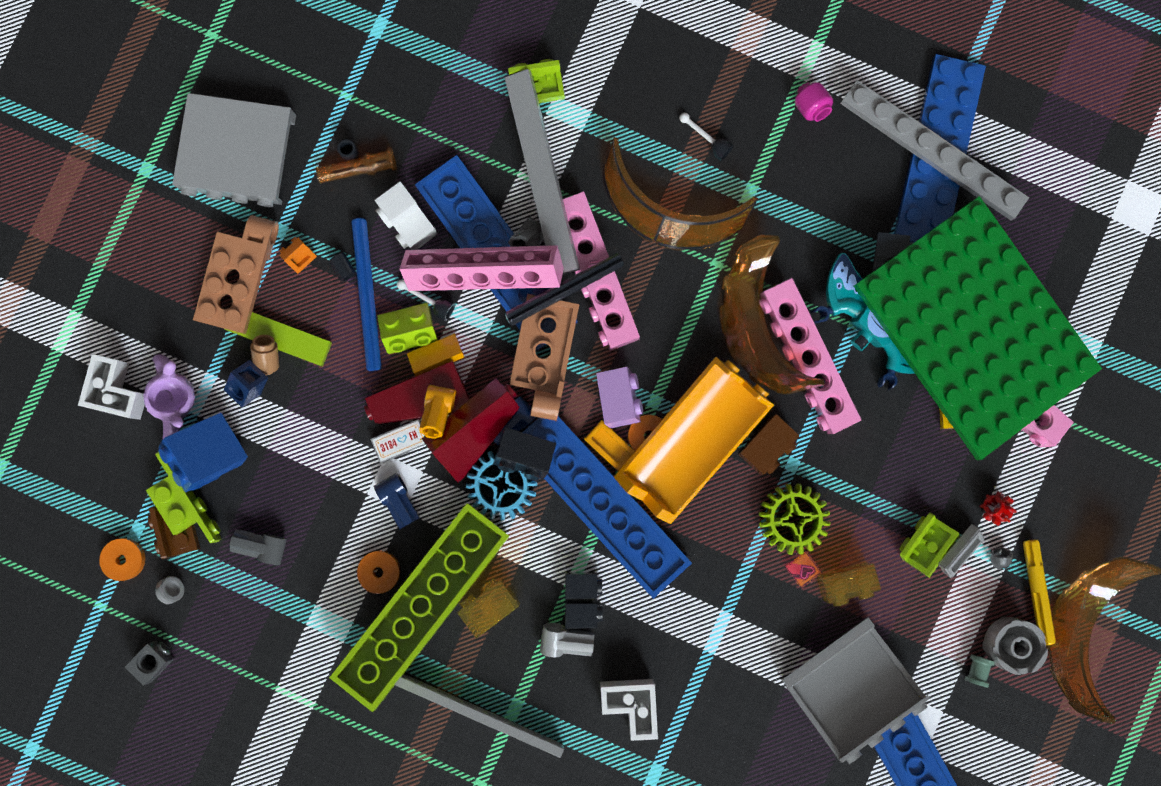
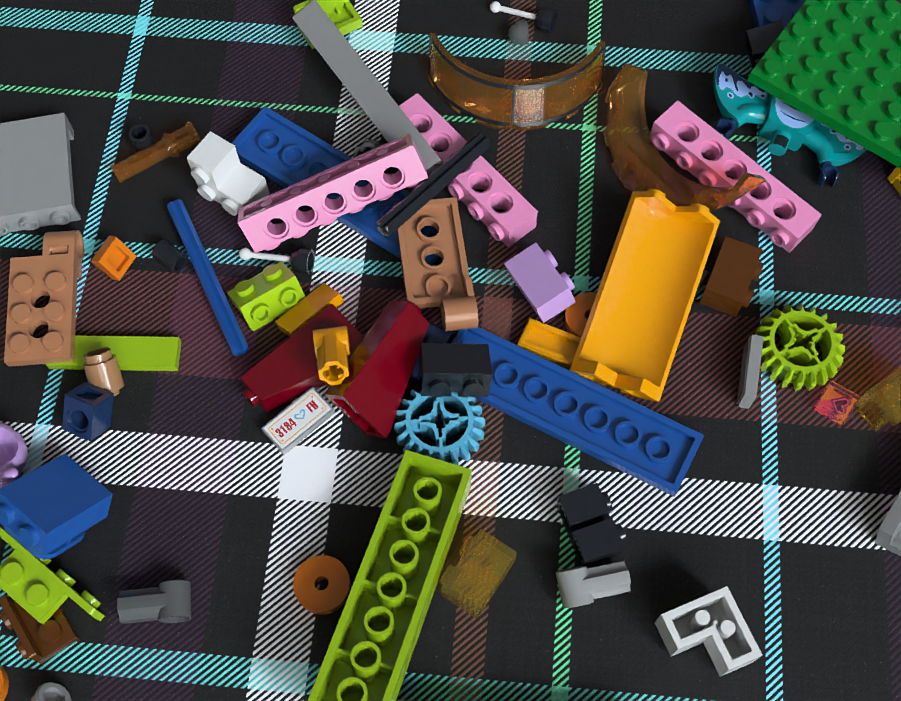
camera: 15 degrees left, 20 degrees down
(394, 495) = (311, 481): dark blue piece -> none
(693, 154) = (519, 33): none -> dark grey hinge
(748, 524) = (750, 371): none -> light grey tile

